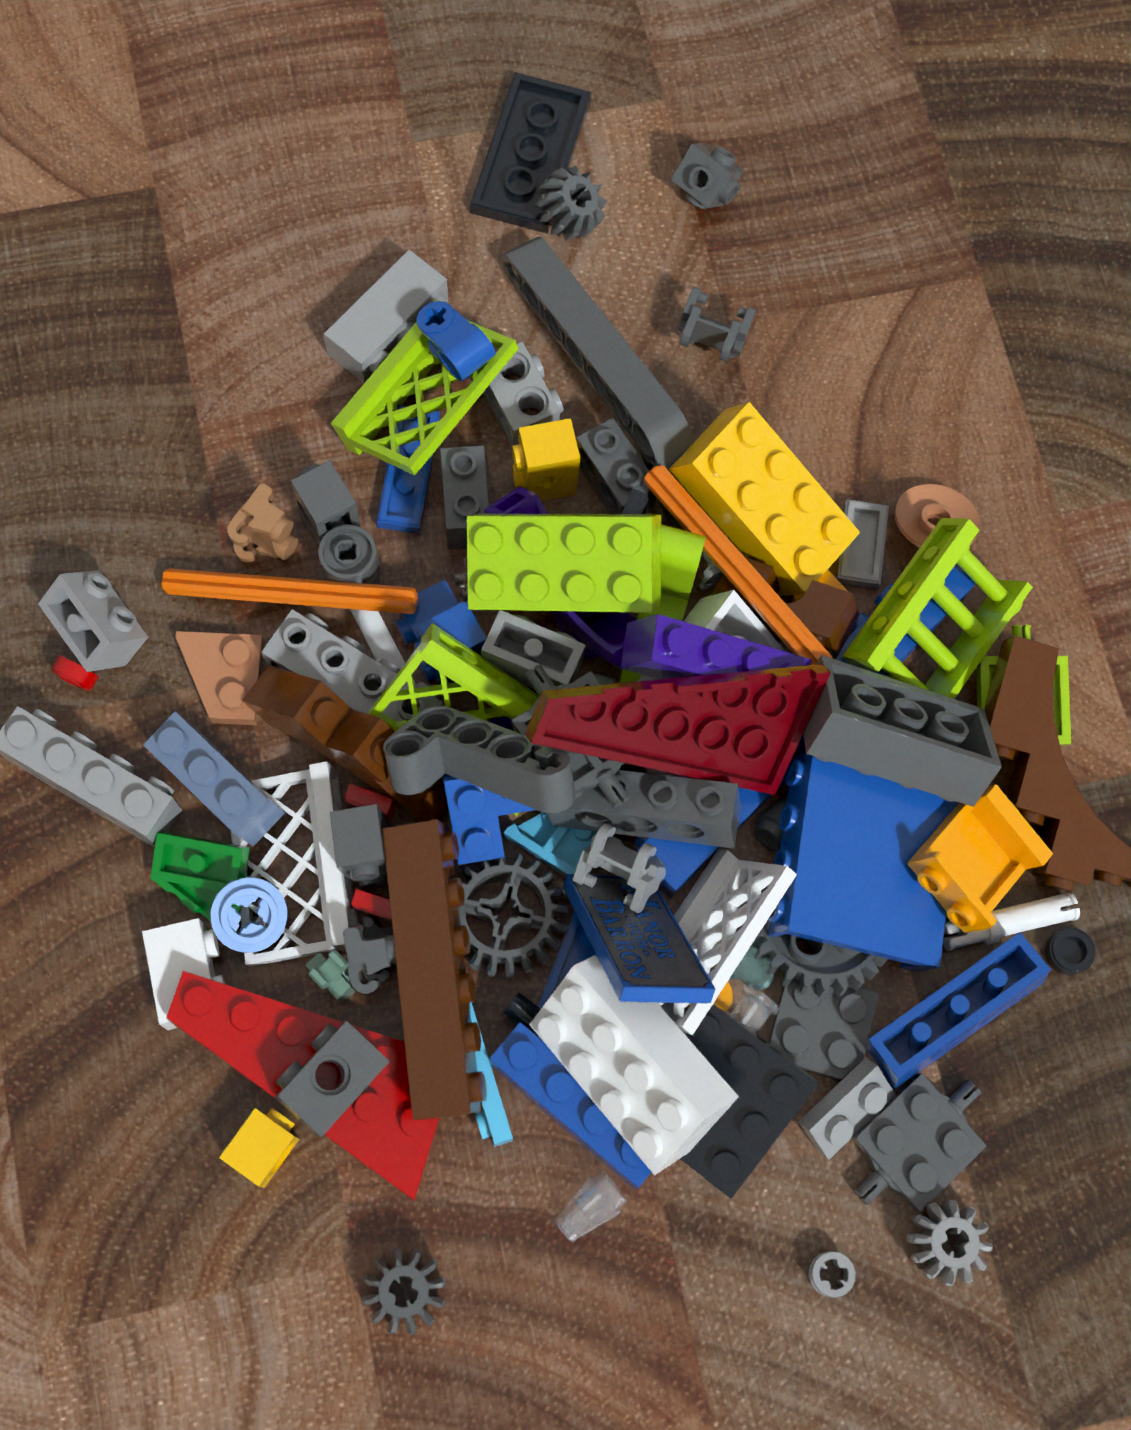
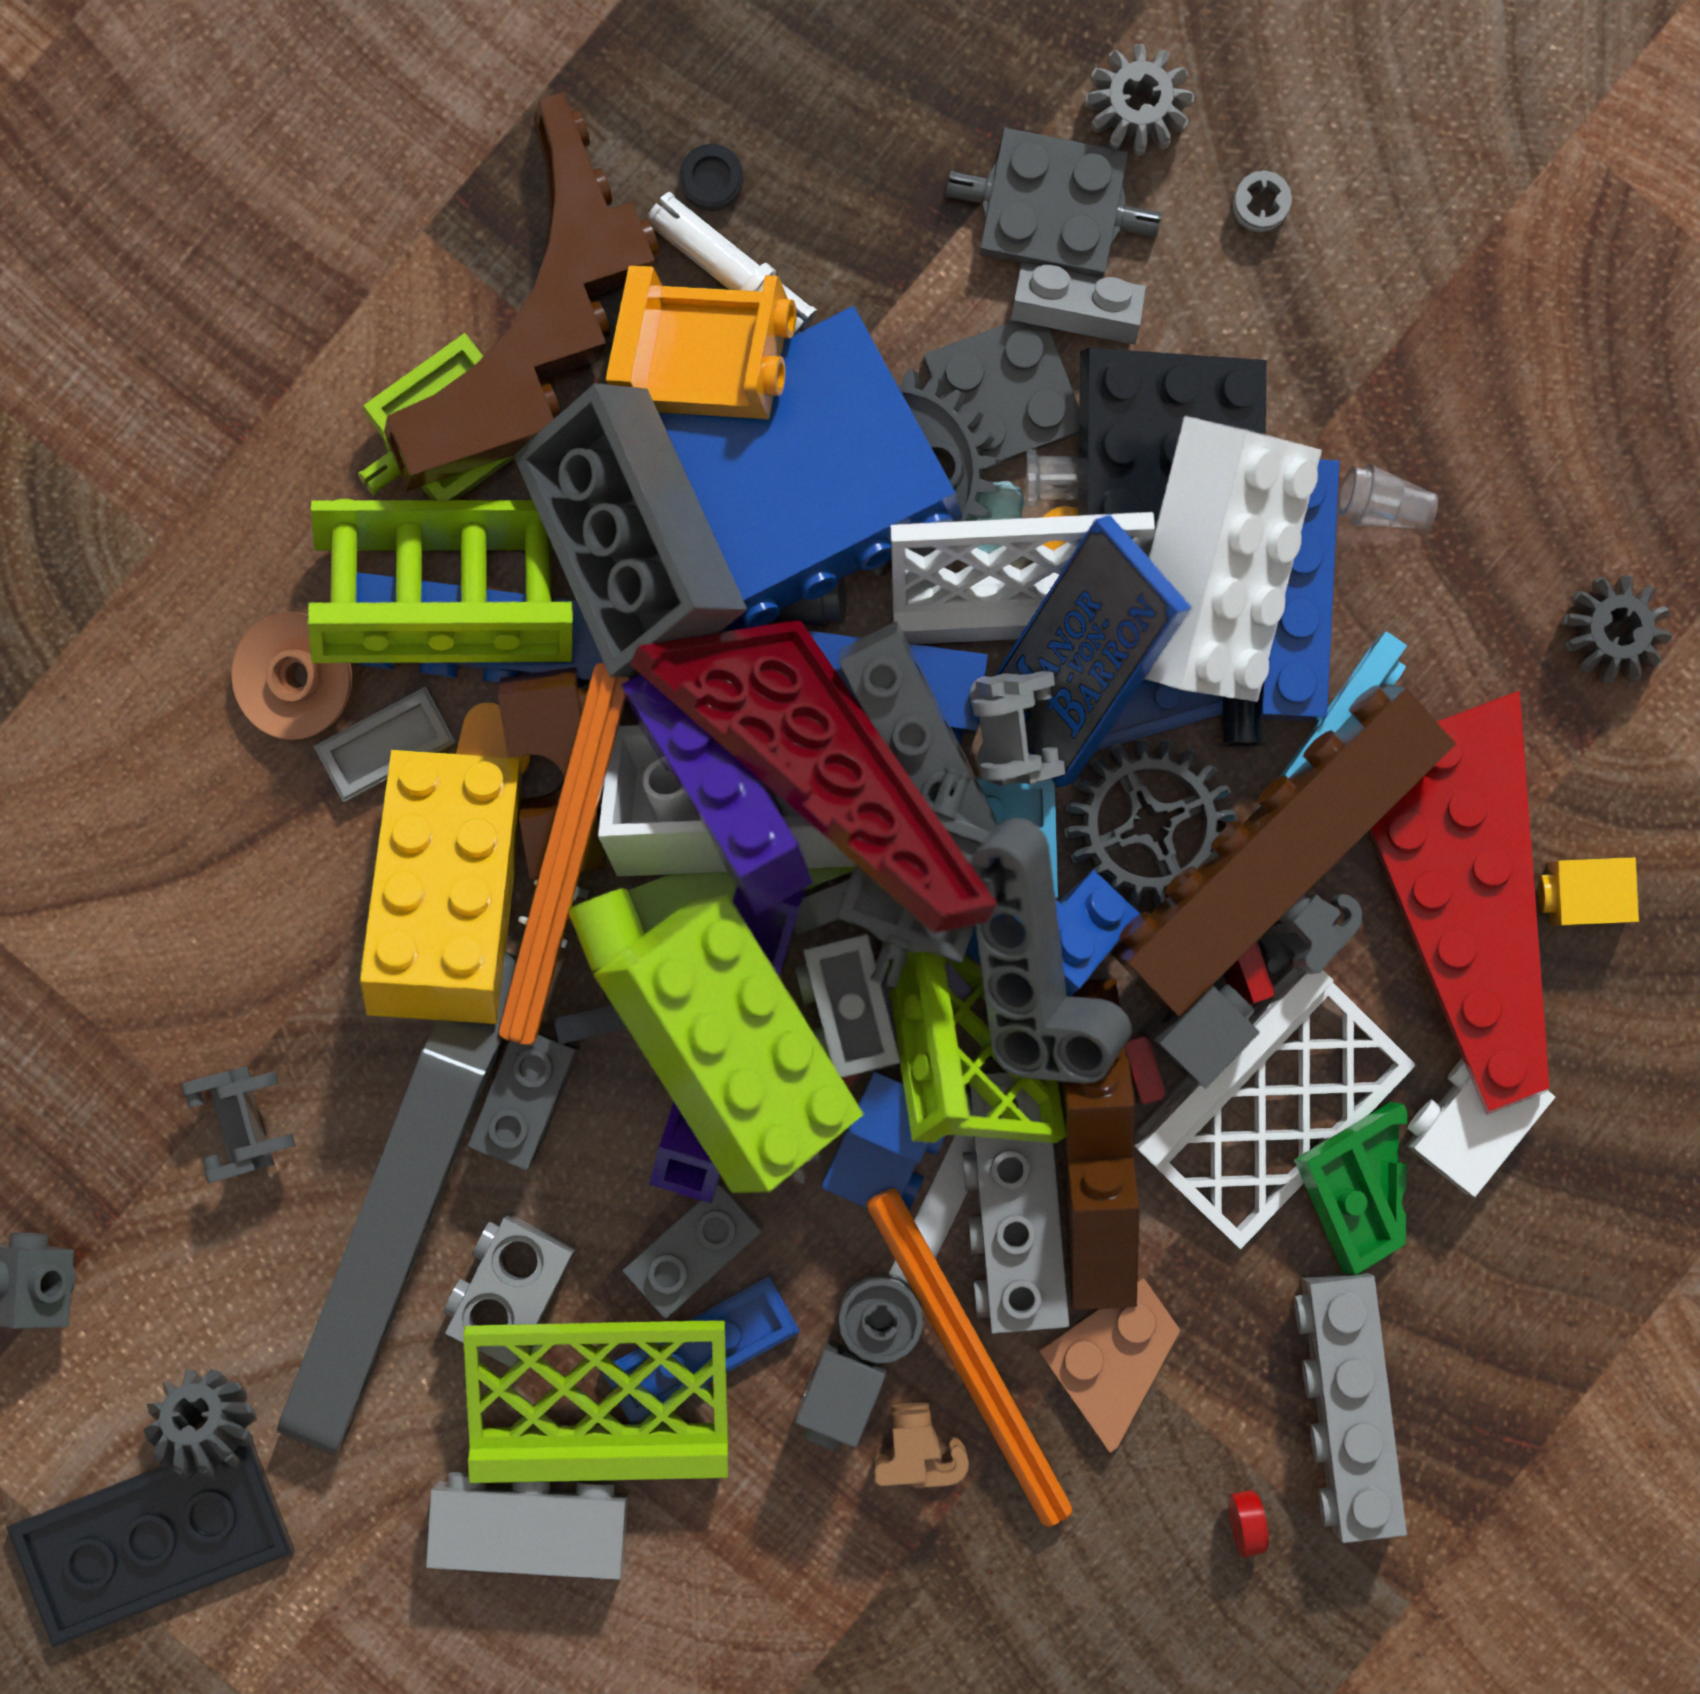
camera: 120 degrees left, 15 degrees up
(92, 620) = (1176, 1551): light grey brick -> none
(213, 779) = (1259, 1225): sand blue arch -> none
(252, 936) = (1383, 1078): light blue gear -> none
(331, 974) = (1363, 960): sand green plate -> none
(358, 1066) = (1512, 846): dark grey brick -> none
(454, 339) = (523, 1401): blue piece -> none
(547, 459) = (582, 1184): yellow brick -> none
(957, 1010) = (887, 254): blue brick -> none

